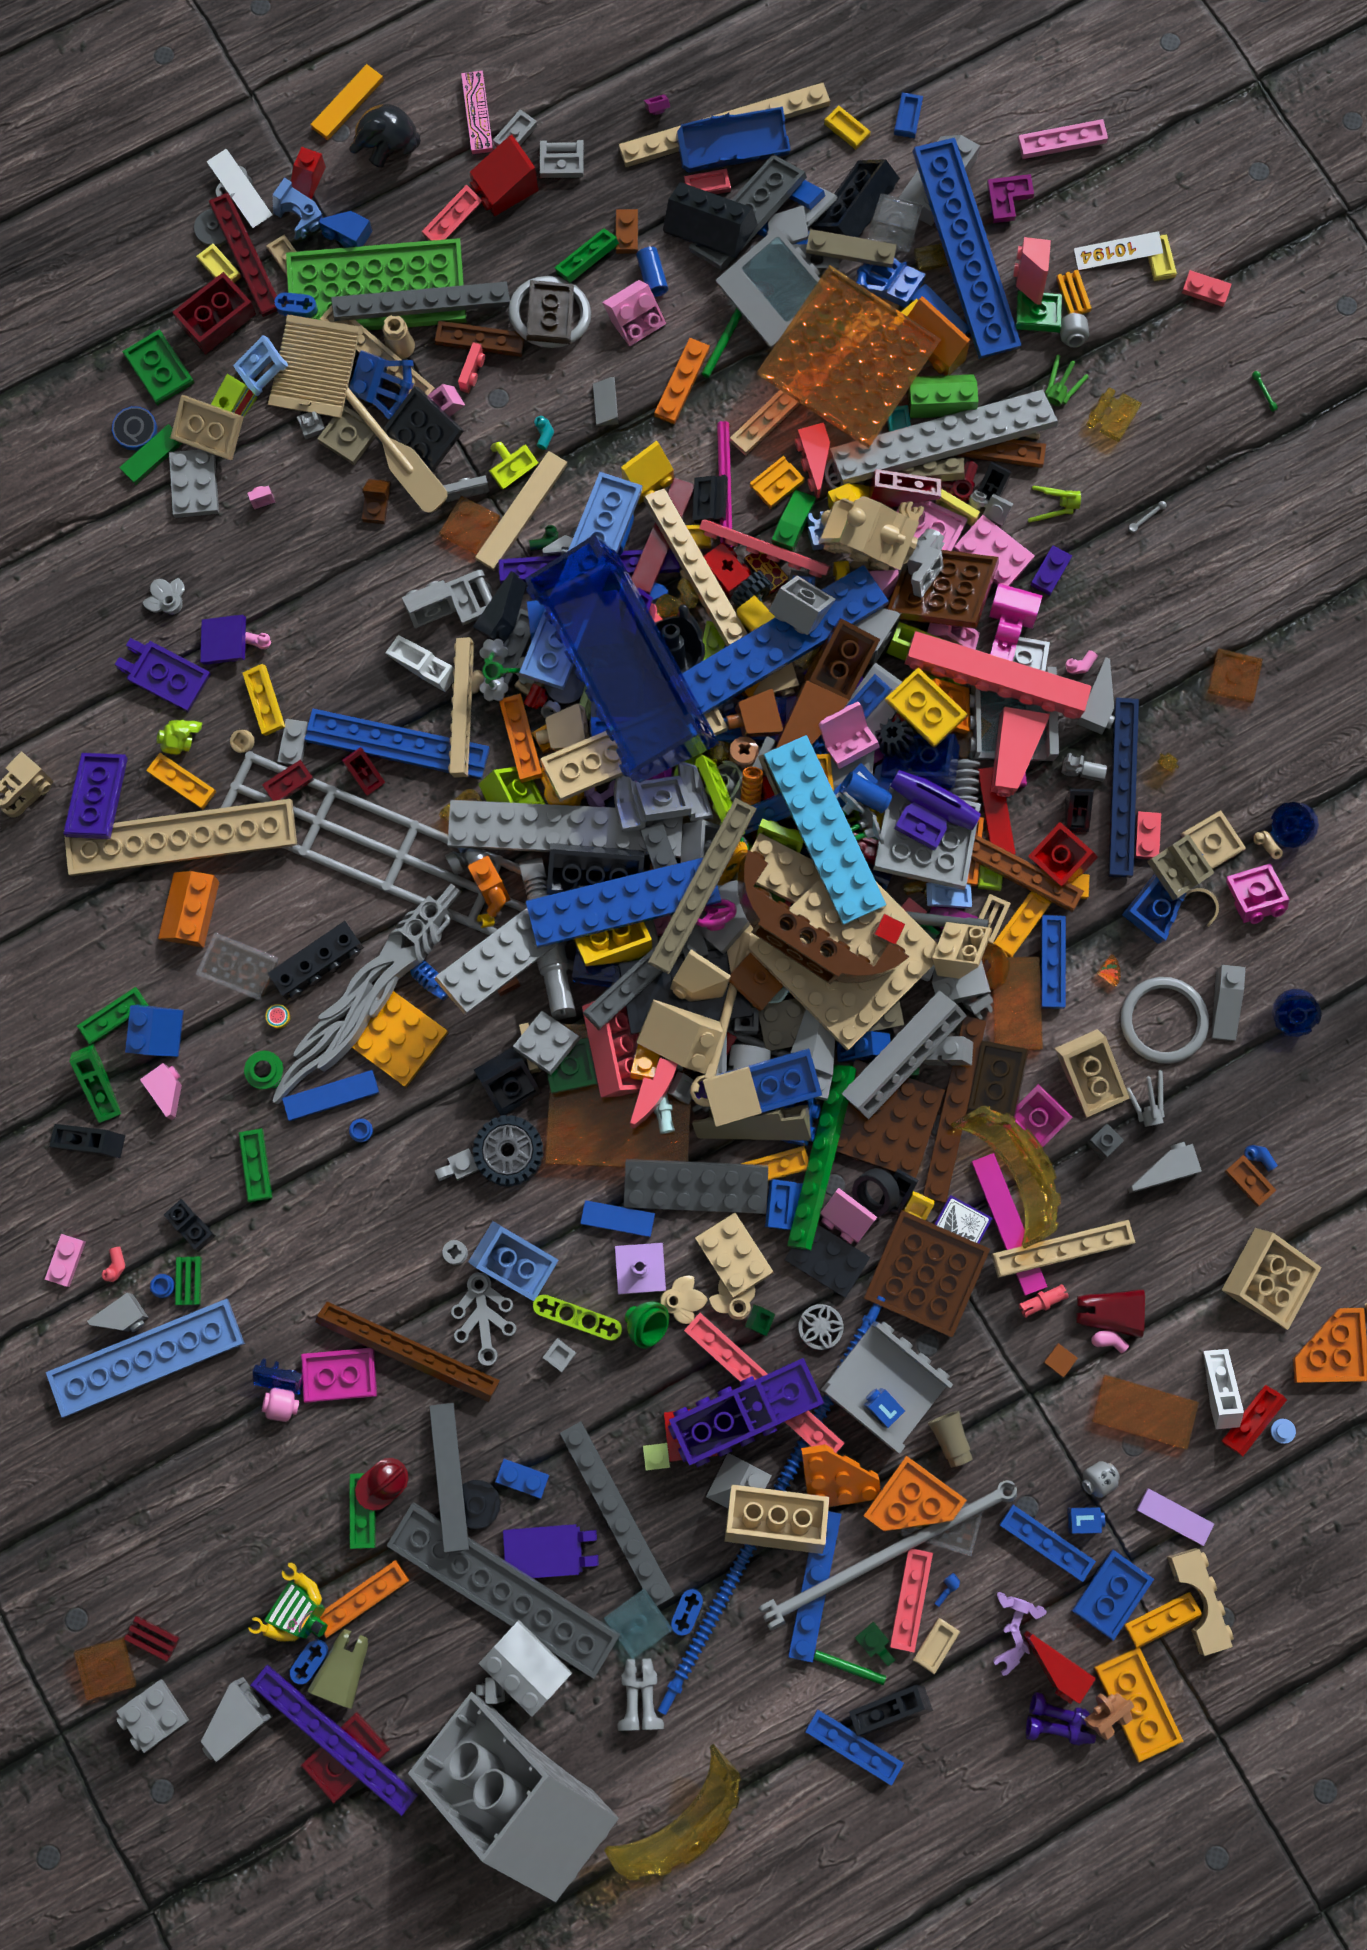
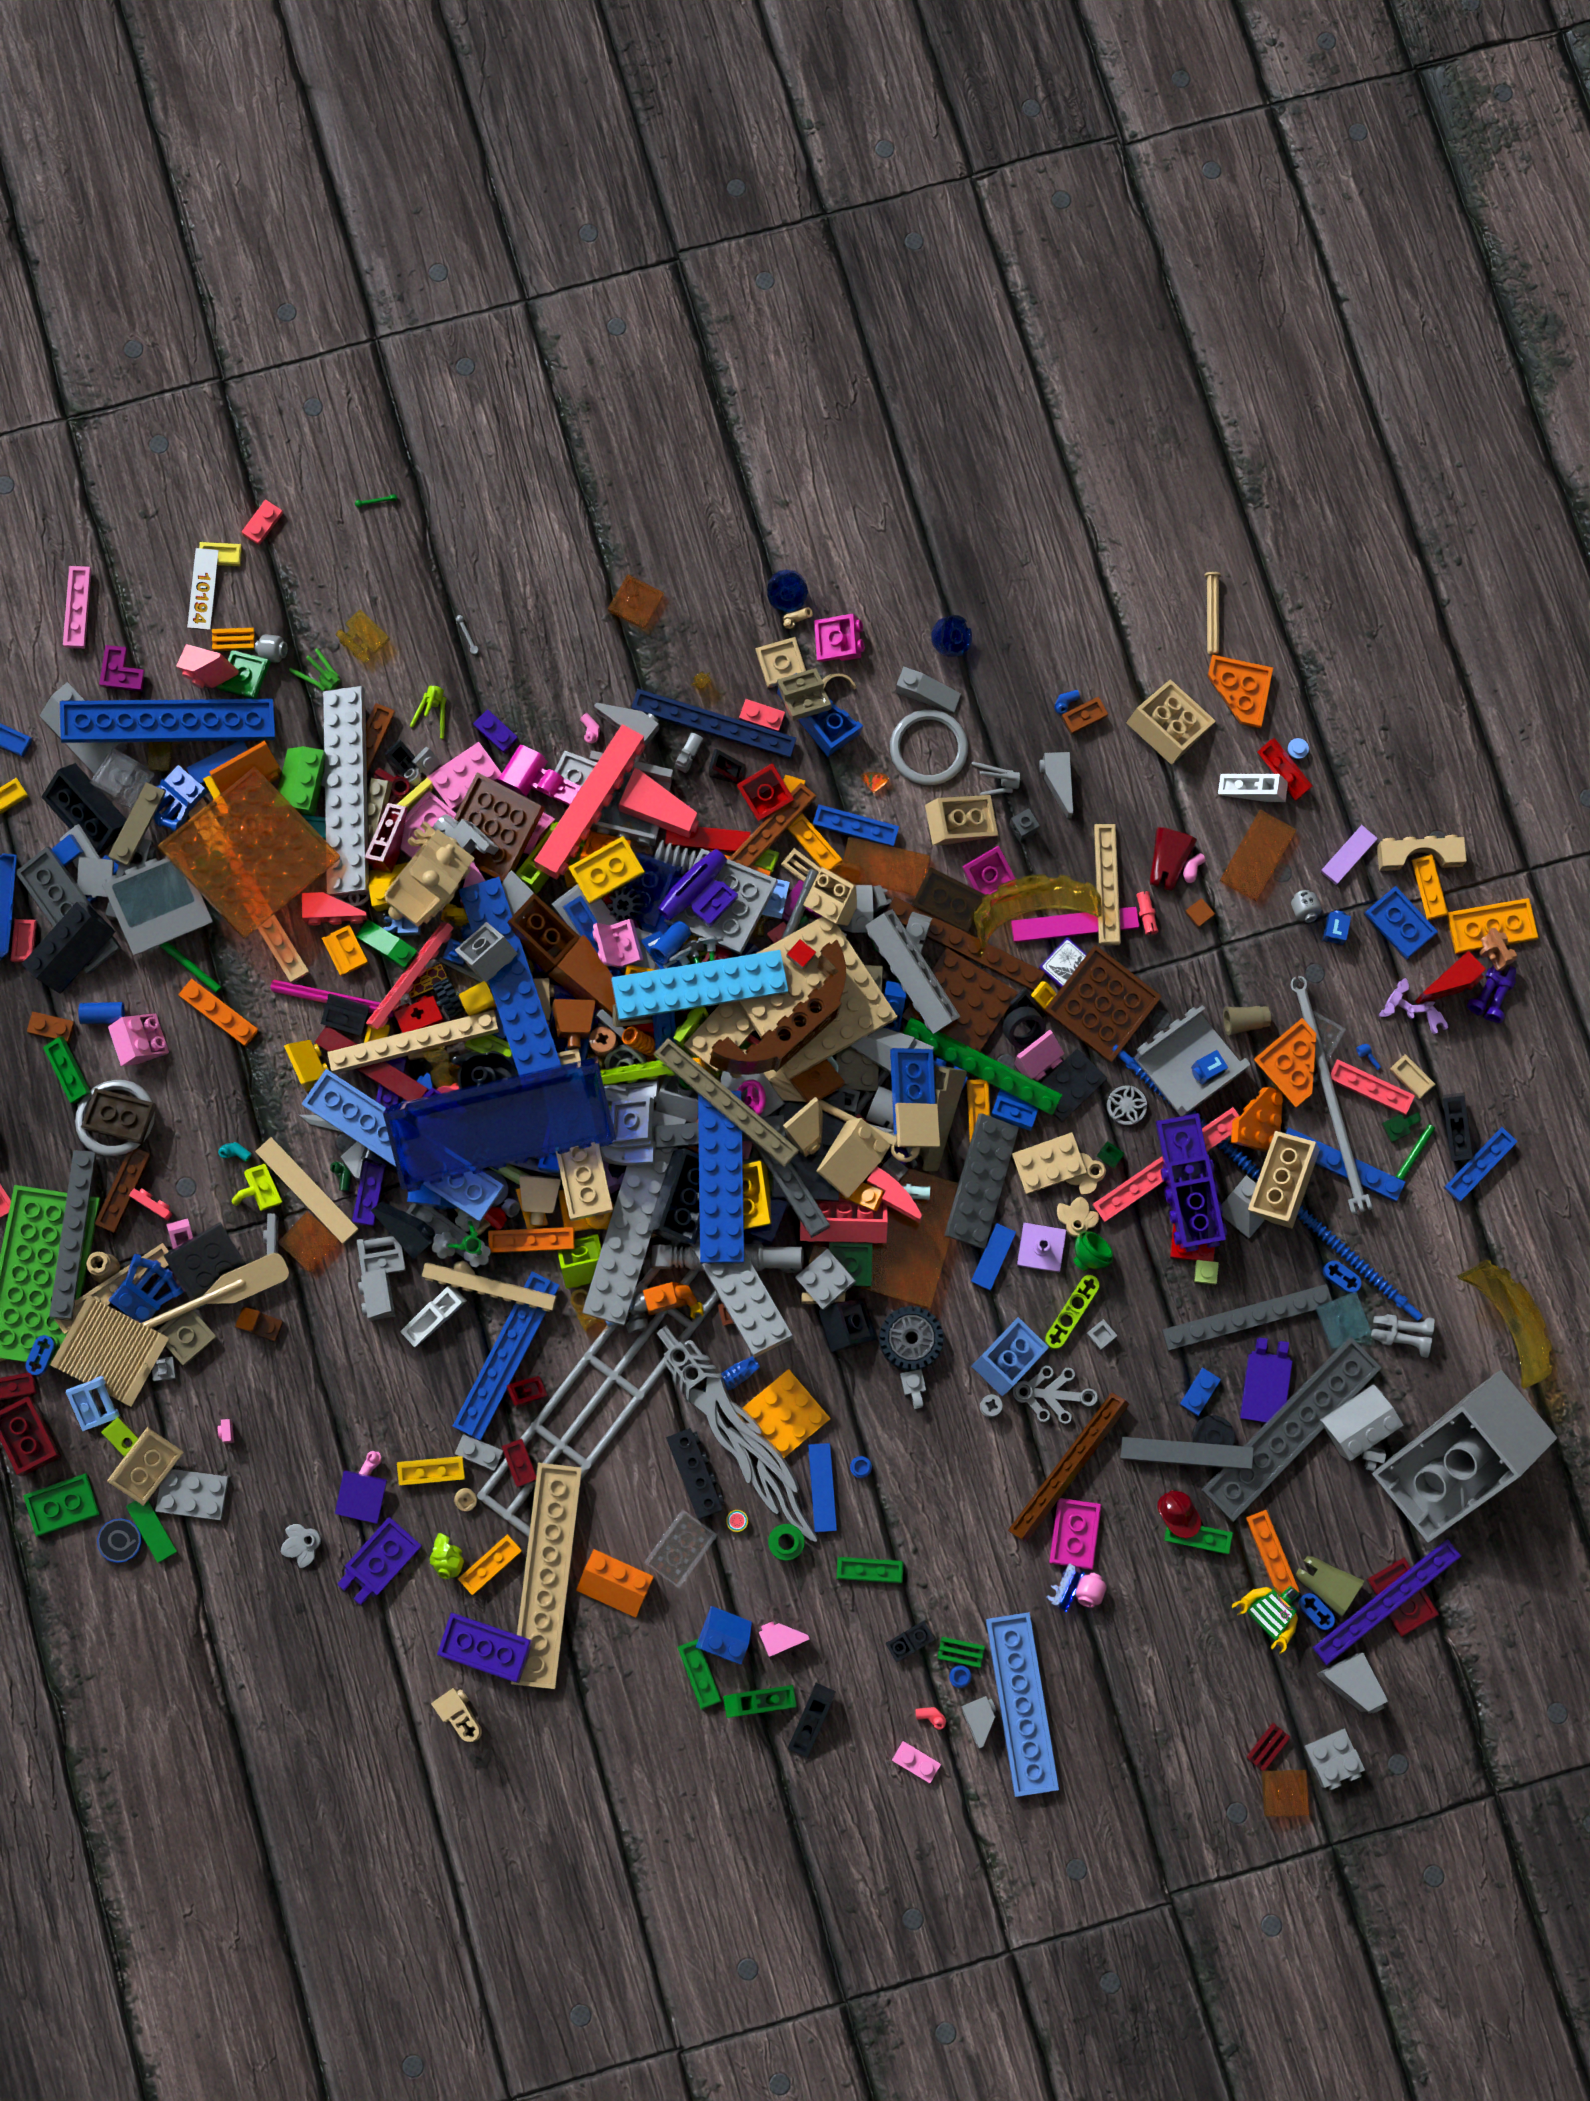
camera: 85 degrees left, 0 degrees up
(605, 402) = (220, 1087): light grey slope -> none
(1047, 1543) = (1348, 964): blue plate -> none

